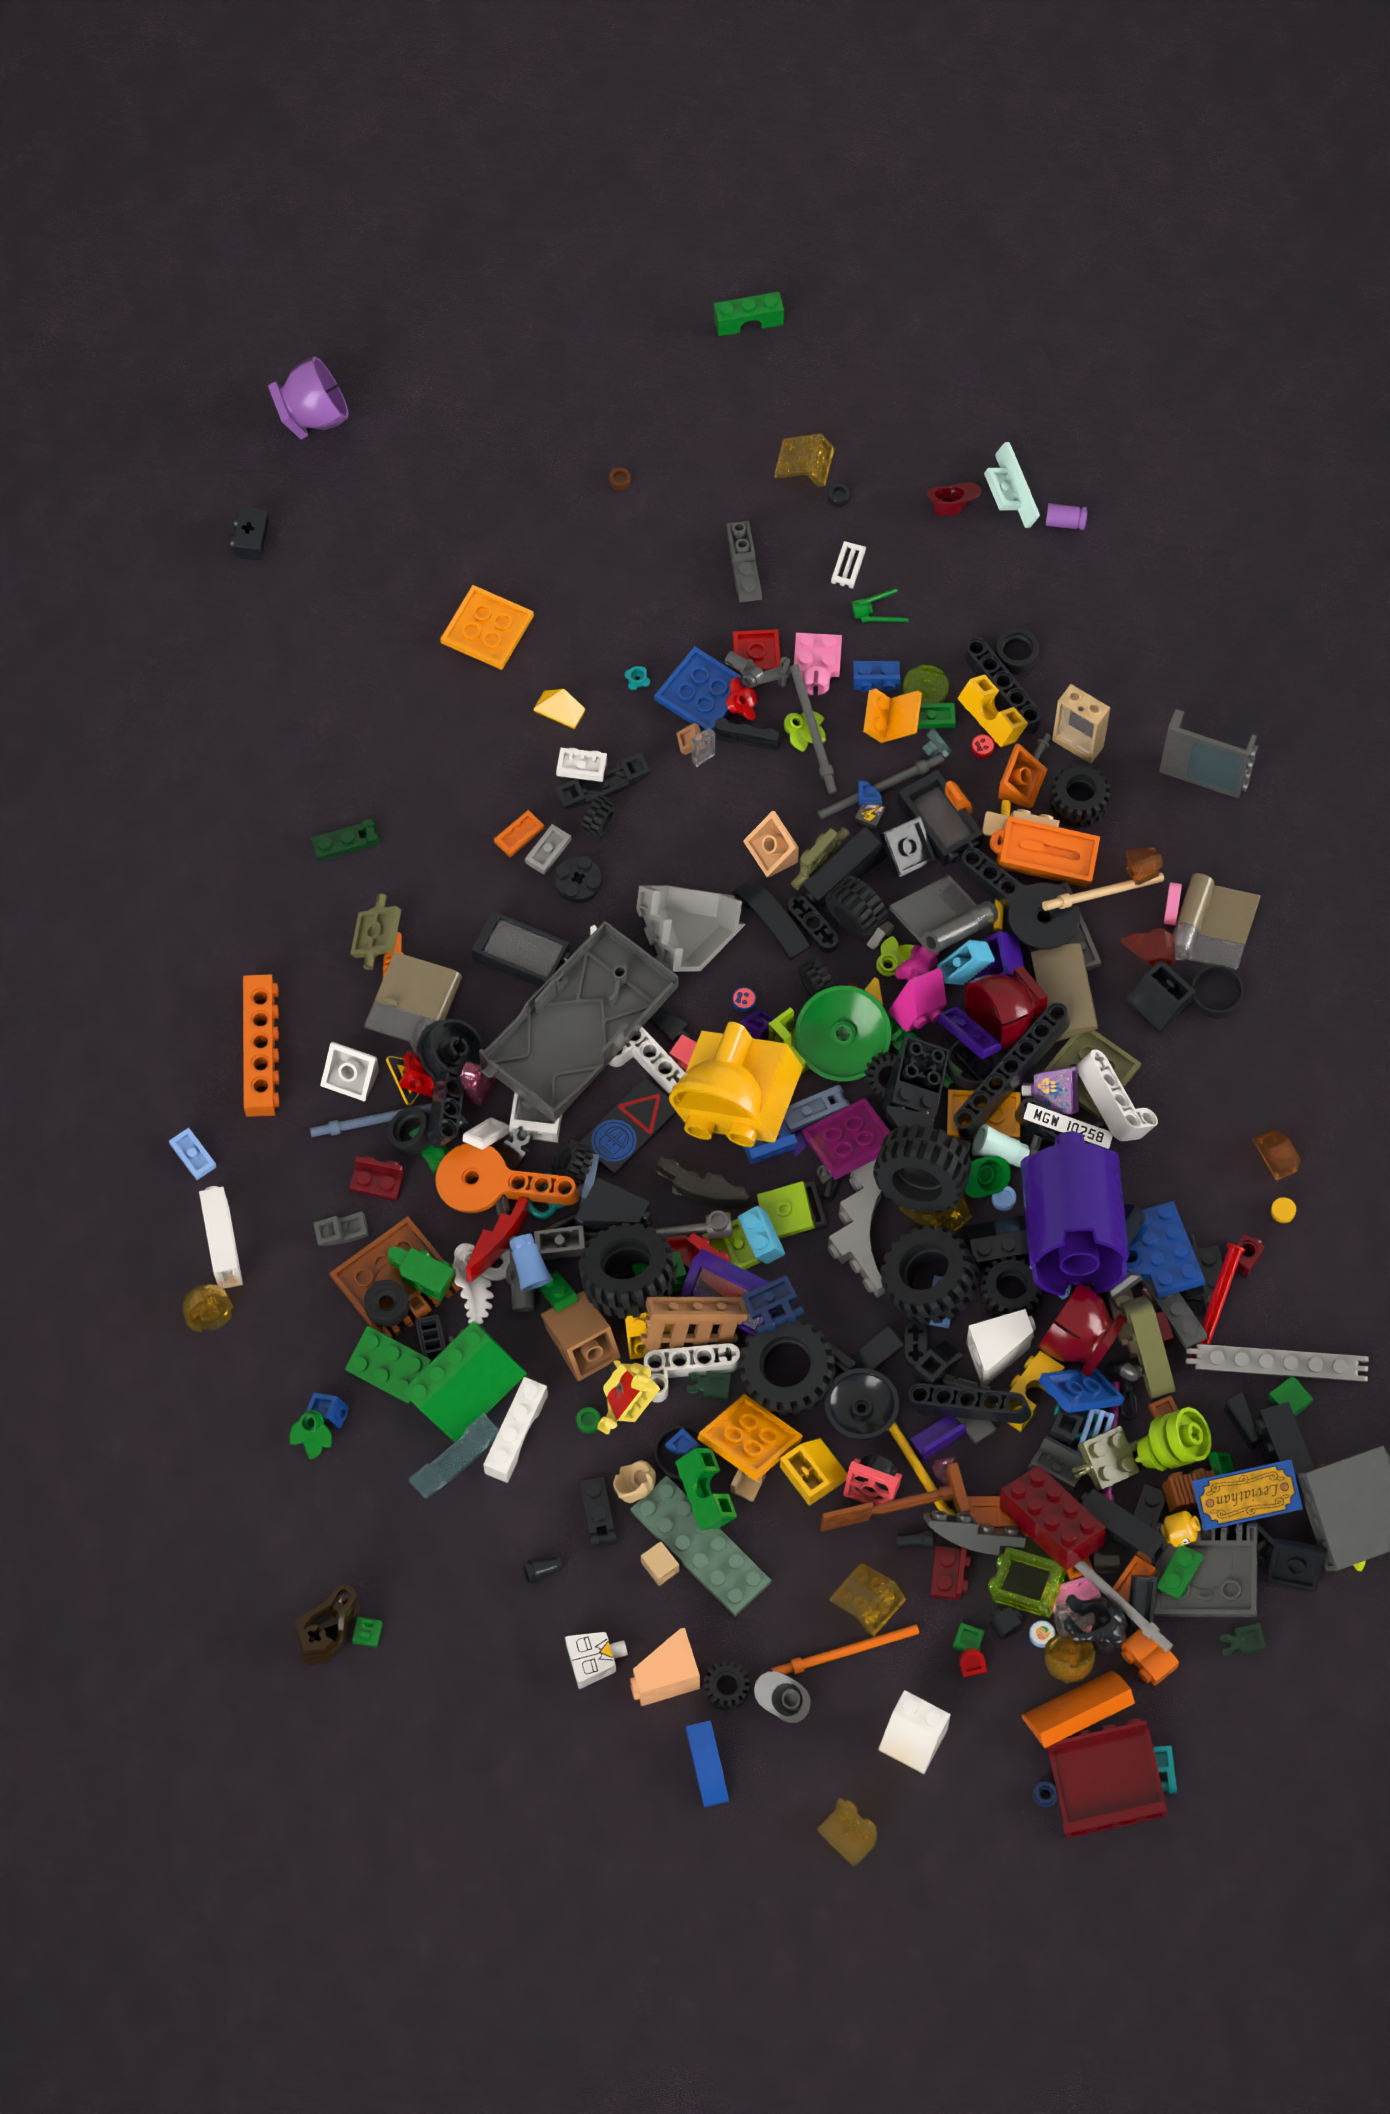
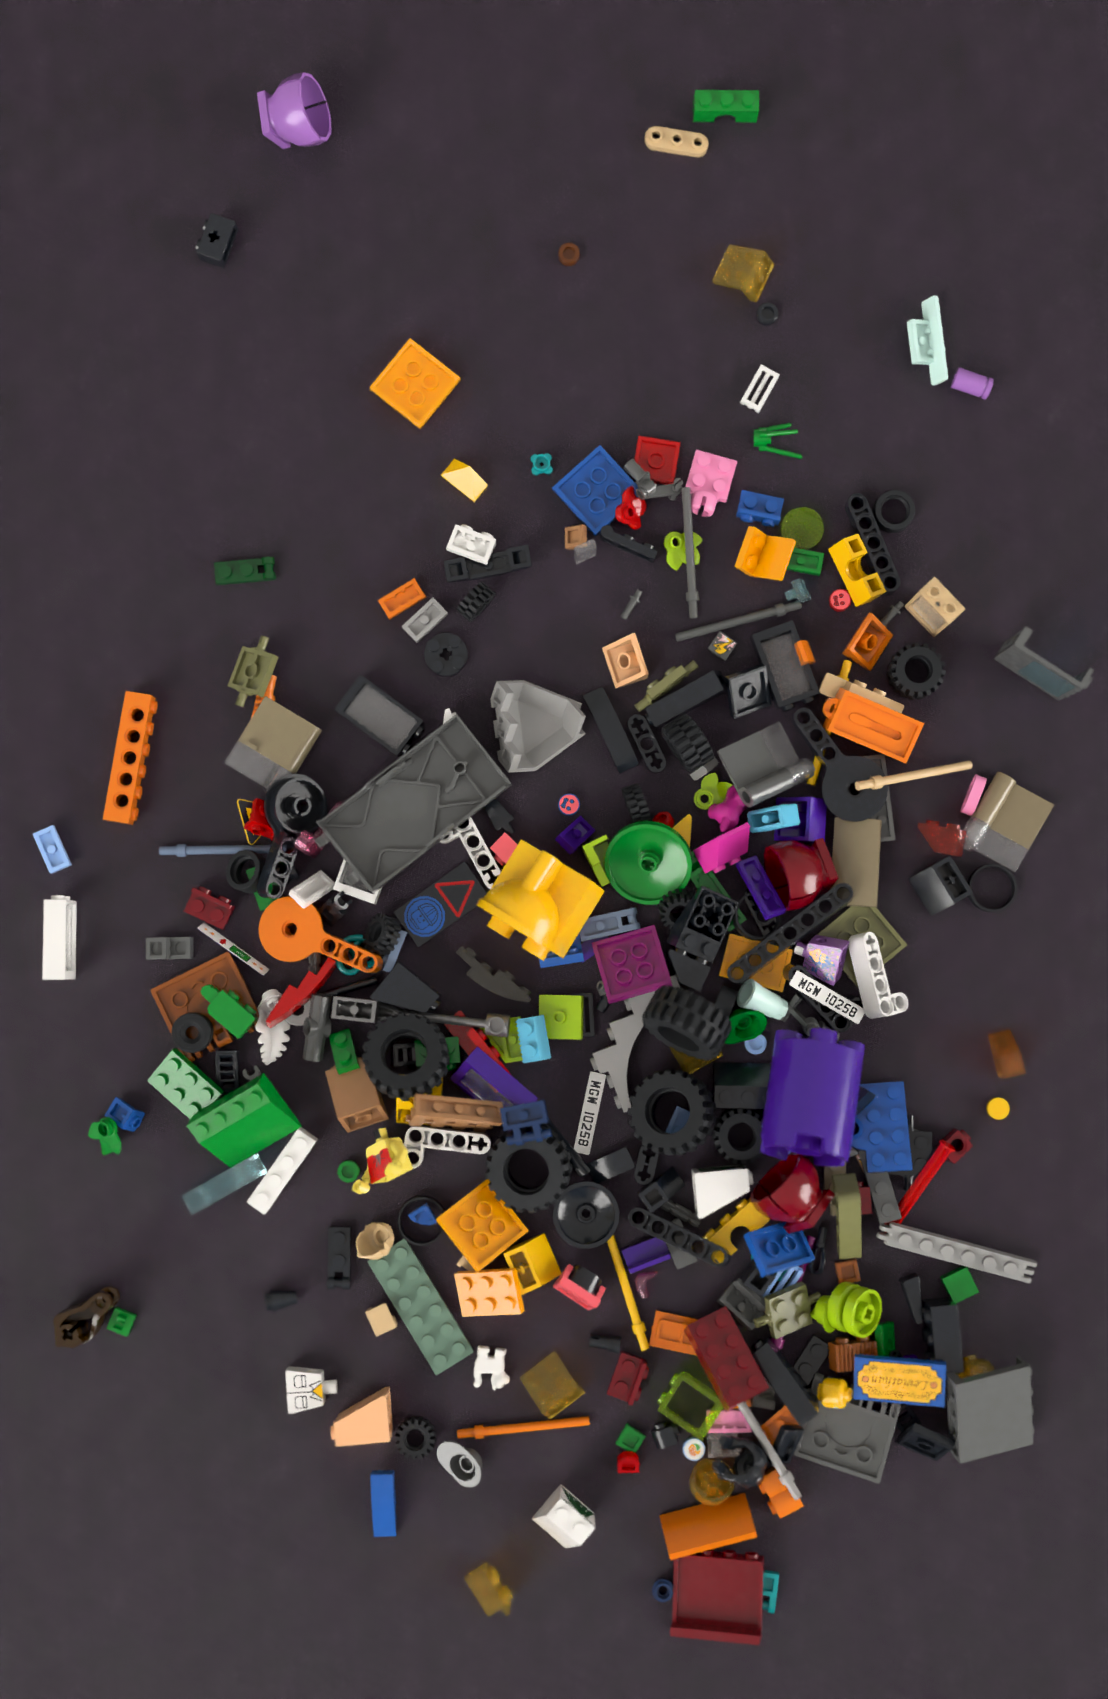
camera: 10 degrees right, 20 degrees up
(207, 1307) = (36, 997): clear yellow cylinder -> none
(349, 1071) = (203, 802): white slope -> none
(412, 1215) = (235, 950): none -> white sticker
(529, 1263) = (322, 1028): medium blue plant -> none
(696, 1473) = (432, 1285): green arch -> none
(714, 1385) = (463, 1165): clear green plate -> none
(715, 359) = (666, 143): none -> tan plate
(743, 561) = (664, 367): dark grey slope -> none
(766, 787) = (630, 606): none -> dark grey piece
(773, 1506) = (489, 1292): none -> light orange plate
(794, 1588) = (490, 1364): none -> white animal
(841, 1306) = (589, 1113): none -> white sticker
(861, 1513) = (645, 1311): dark orange piece -> none
(868, 794) = (724, 629): blue tile -> none
(952, 498) = (872, 341): dark red piece -> none
(965, 1532) = (648, 1354): dark grey slope -> none
(1125, 1370) = (824, 1233): dark grey arm -> none
(1143, 864) = (956, 754): clear orange slope -> none
(1179, 1572) = (824, 1428): green plate -> none
(1246, 1639) = (867, 1494): clear green plate -> none

